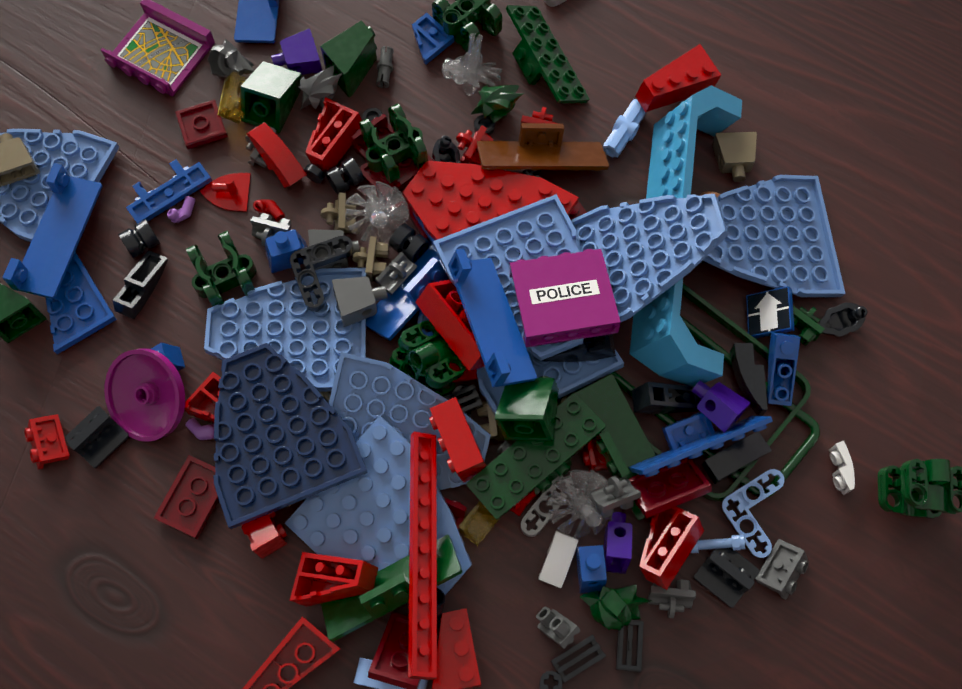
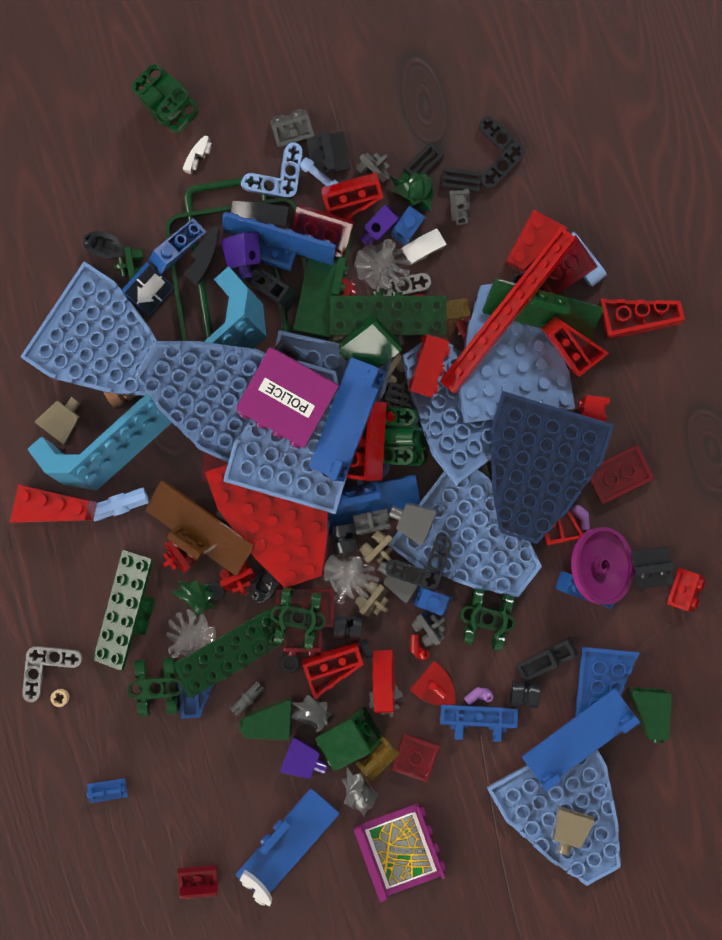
camera: 140 degrees left, 20 degrees up
(431, 70) = (227, 654): none -> dark green bracket
(614, 495) = (360, 250): dark grey hips -> none

